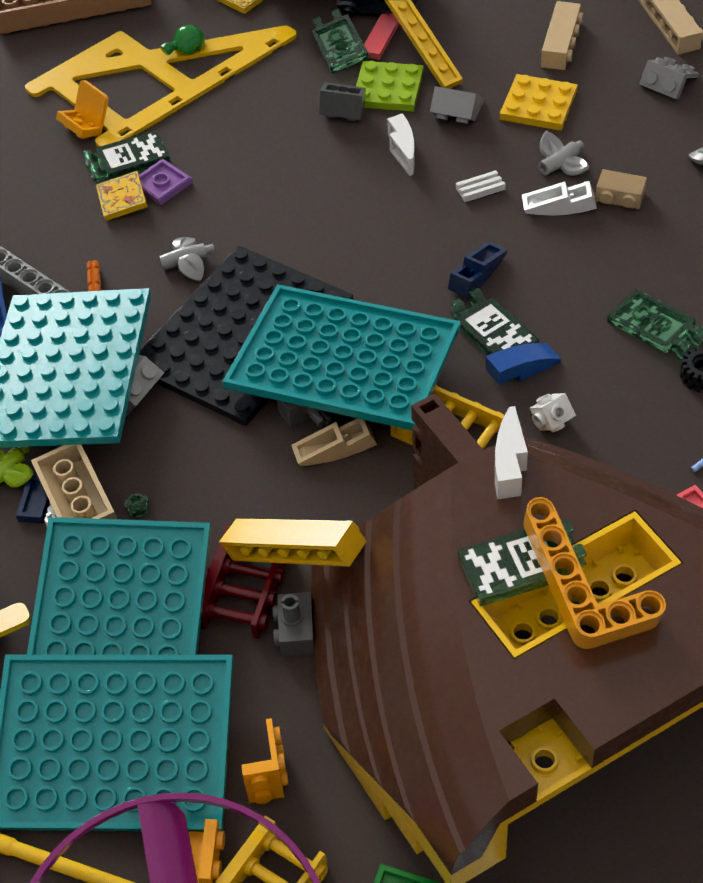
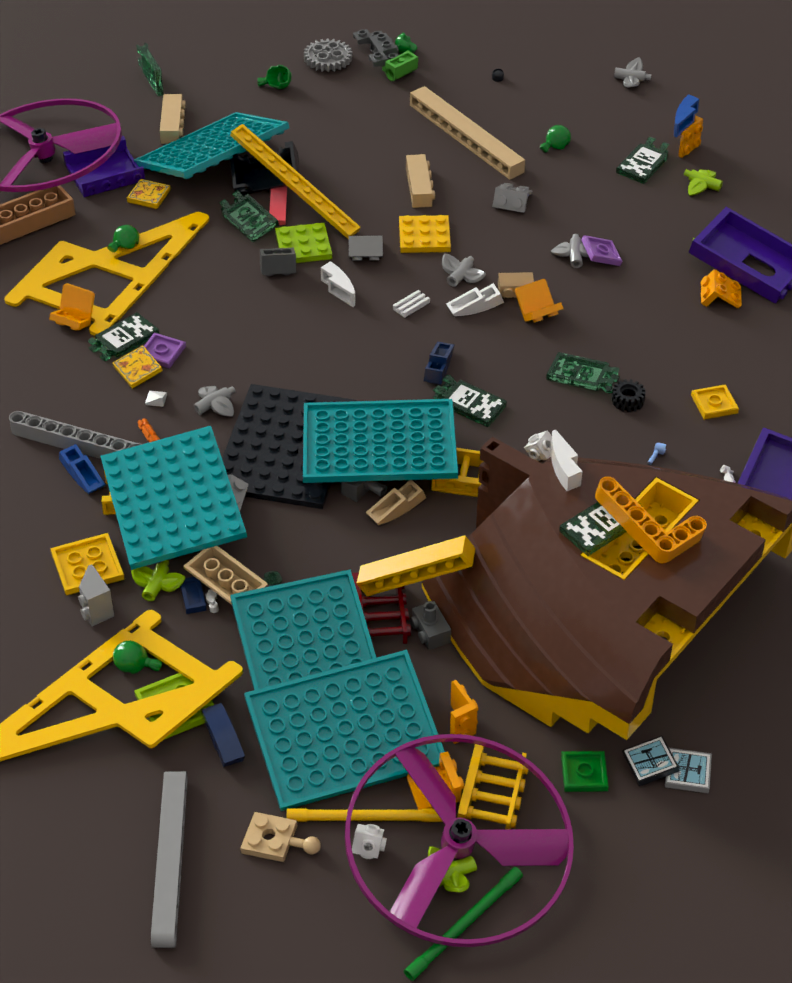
camera: 25 degrees left, 5 degrees down
(125, 239) = (156, 398): none -> white slope
(520, 361) = (501, 419): blue slope -> none
(635, 215) = (536, 301): none -> light orange bracket

